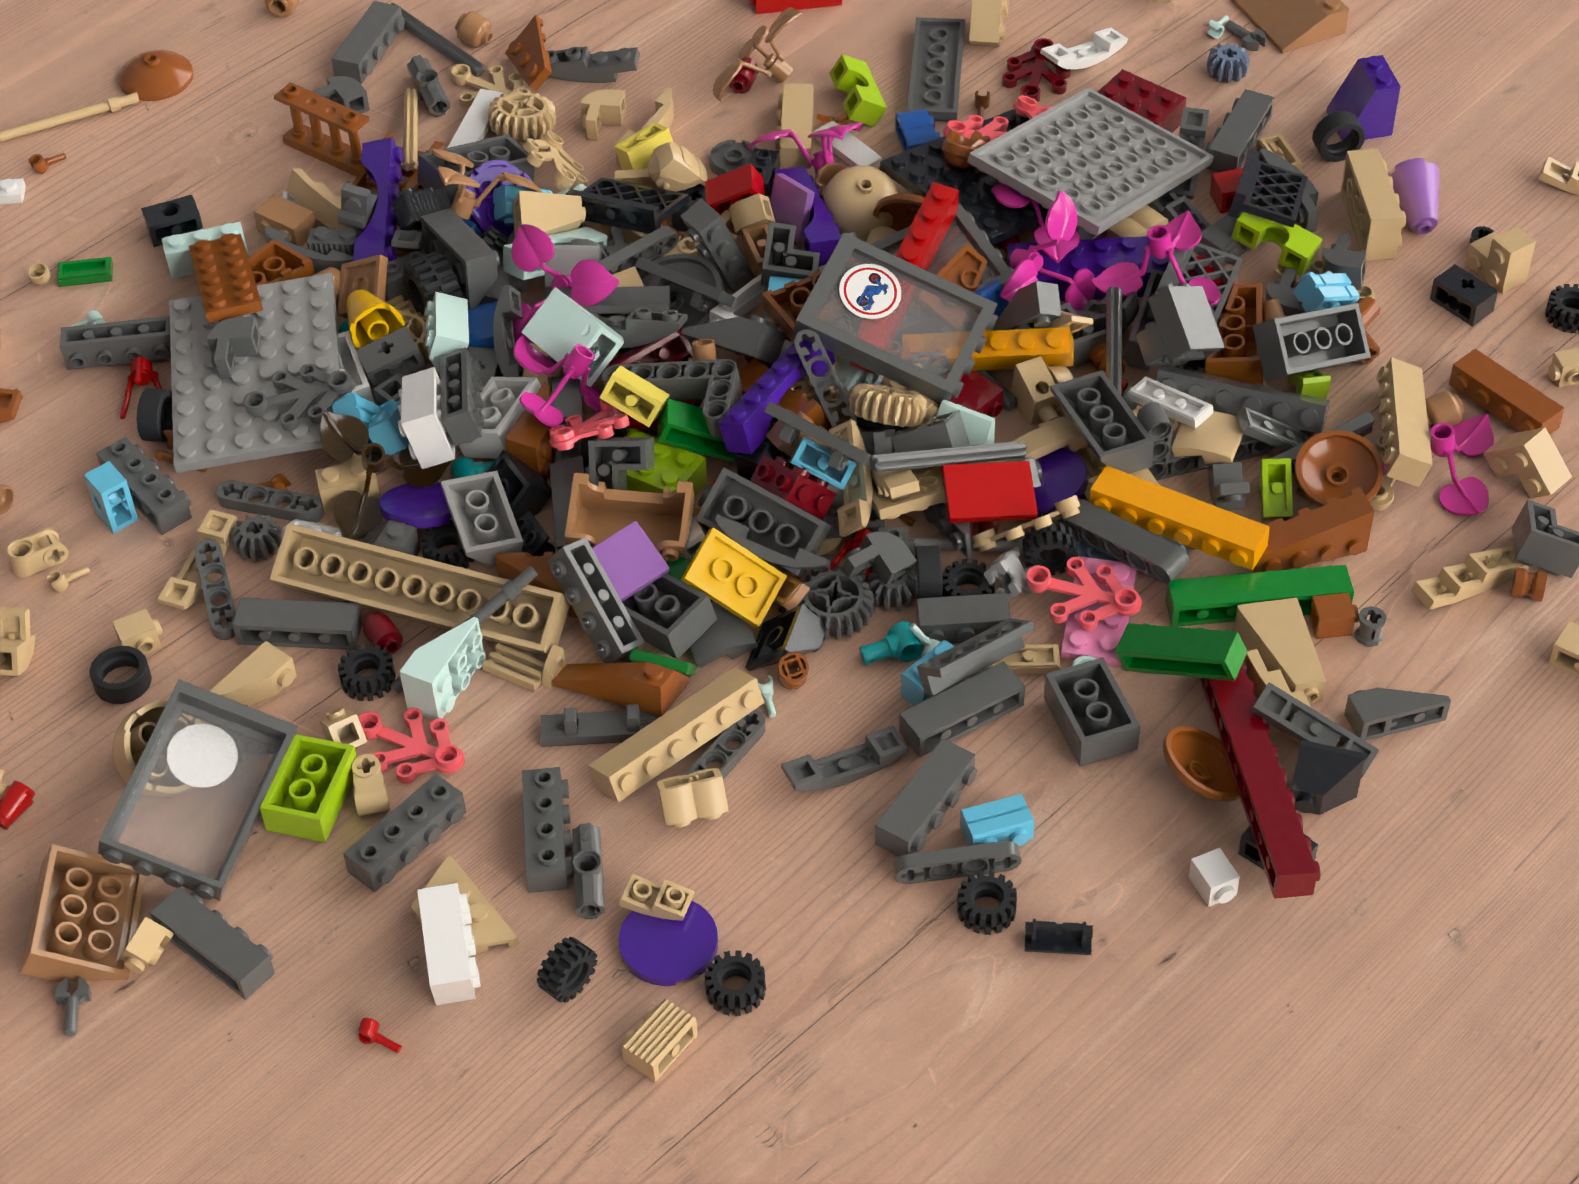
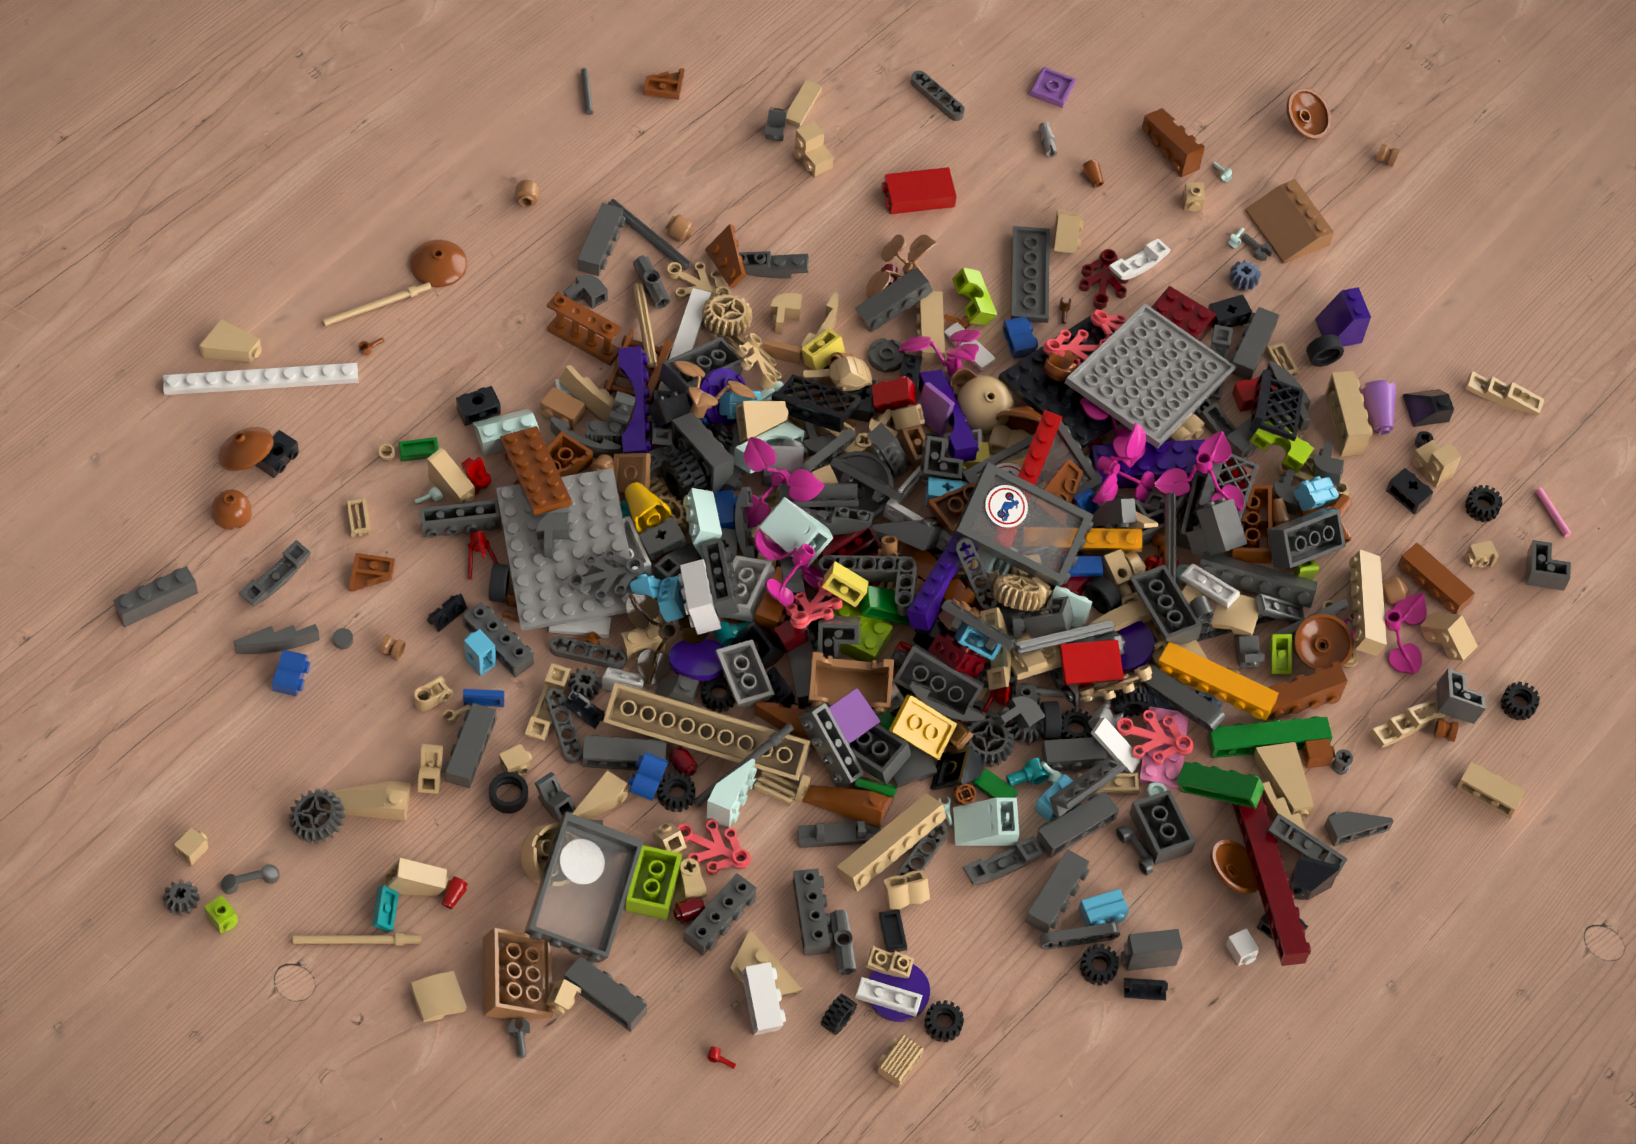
camera: 10 degrees left, 10 degrees up
(76, 613) = (470, 746): none -> dark grey brick
(80, 455) = (451, 610): none -> black hinge
(109, 555) = (484, 697): none -> blue tile
(110, 292) = (449, 478): none -> tan slope
(151, 292) = (476, 473): none -> red hips
(177, 664) = (552, 796): none -> dark grey brick
(243, 563) = (582, 708): none -> black hinge
(264, 469) = (583, 628): none -> white tile
(324, 645) = (648, 775): none -> blue brick
(356, 825) = (688, 909): none -> dark red brick
(555, 467) = (790, 636): none -> dark red brick
(592, 154) = (782, 351): none -> medium nougat tile
(650, 946) = (888, 996): none -> white tile
(669, 856) = (893, 931): none -> black tile
(746, 92) = (894, 299): none -> dark grey brick
(824, 708) = (987, 823): none -> light aqua slope
(843, 666) = (994, 786): none -> green tile
(988, 382) = (1087, 567): none -> blue tile
(1014, 406) = (1103, 595): none -> black tyre
(1023, 602) = (1115, 744): none -> white tile
(1038, 723) = (1125, 834): none -> dark grey bar
(1068, 877) = (1152, 949): none -> dark grey brick
(1213, 96) = (1231, 311): none -> black brick
(1489, 201) = (1428, 407): none -> black slope

